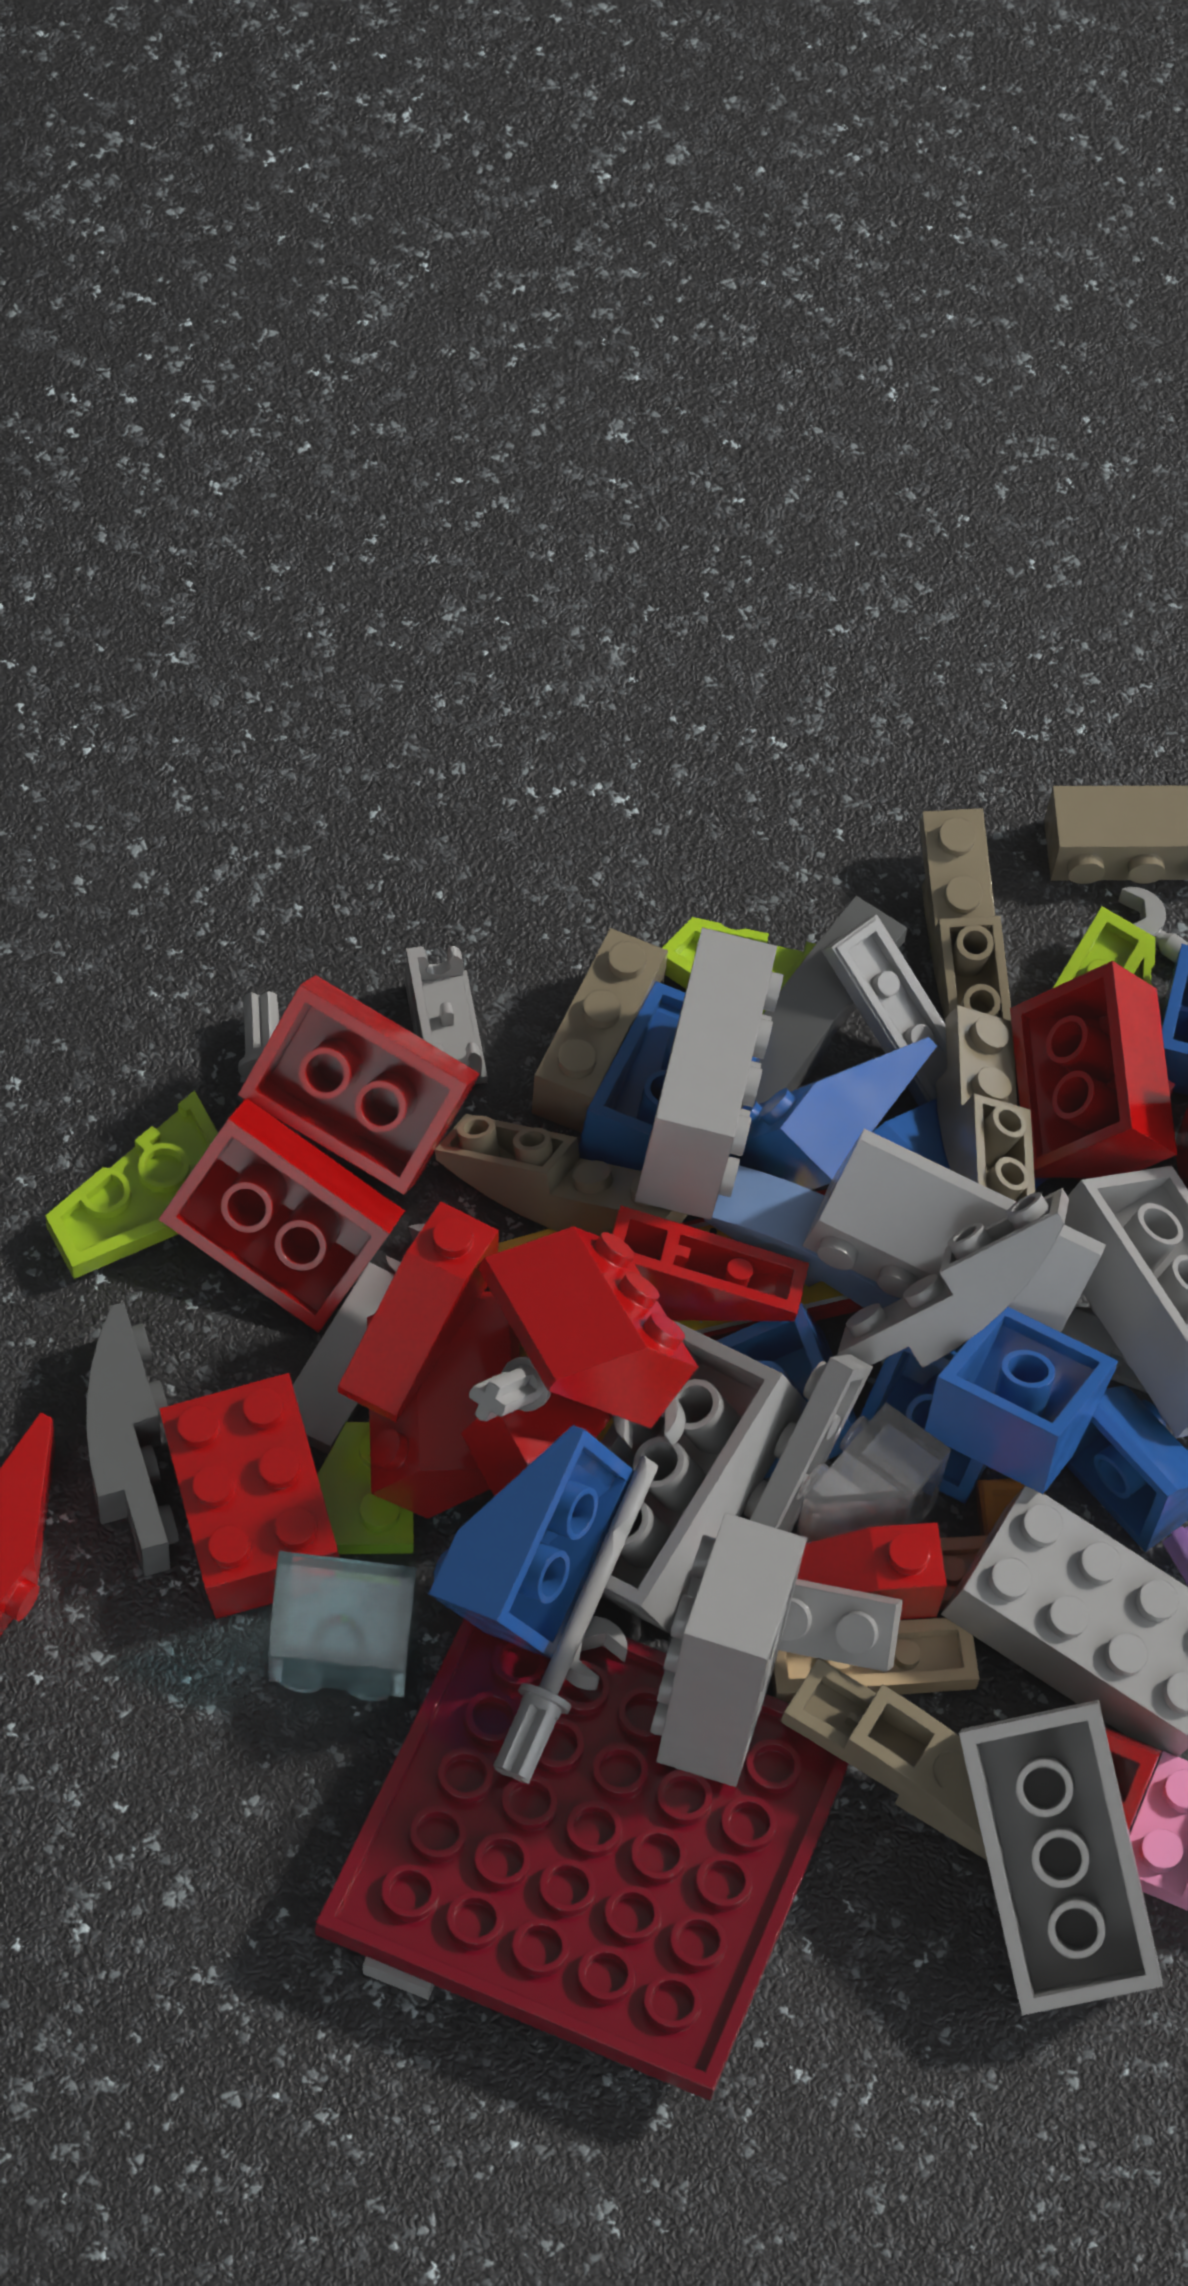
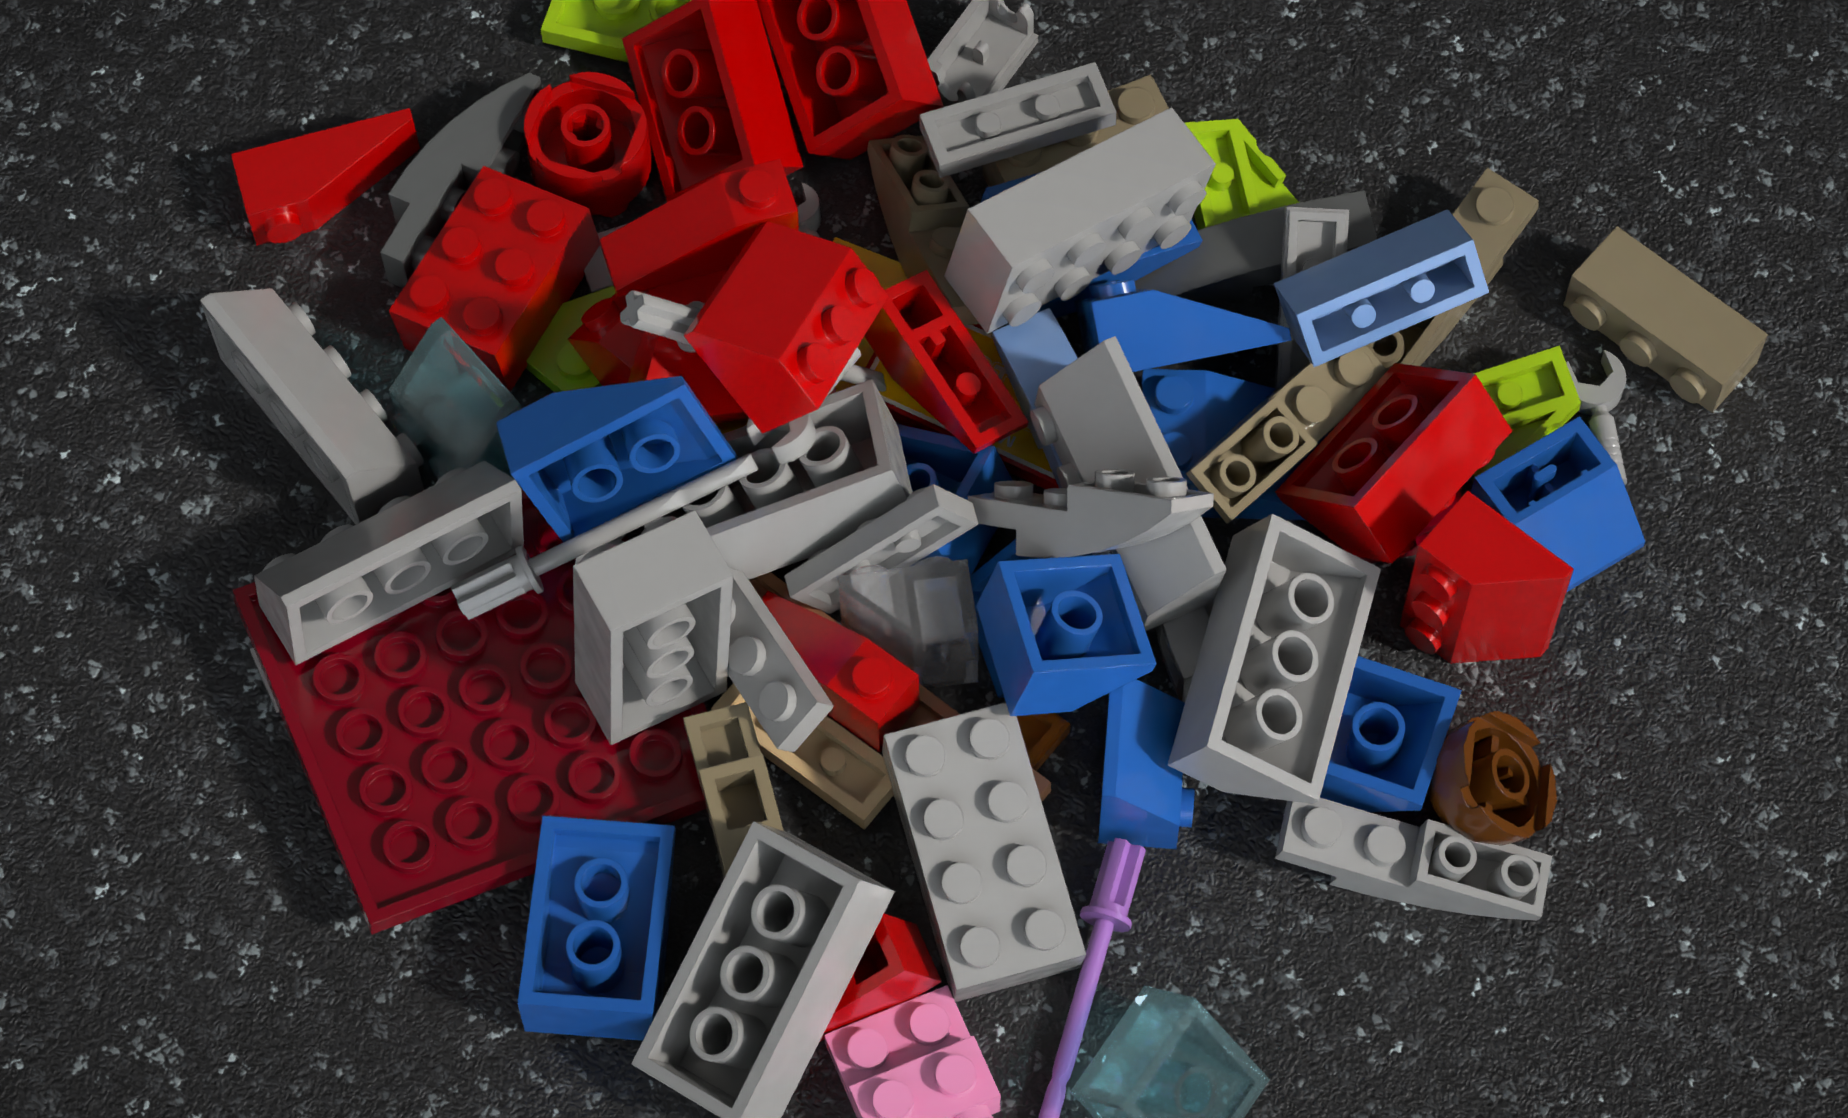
camera: 50 degrees right, 5 degrees up
(208, 1722) = (313, 401): none -> light grey slope
(215, 1324) = (589, 142): none -> red brick
(430, 1780) = (391, 559): none -> light grey slope
(563, 1036) = (1017, 119): none -> light grey plate
(883, 1935) = (597, 928): none -> blue slope
(962, 953) = (1381, 287): none -> medium blue brick

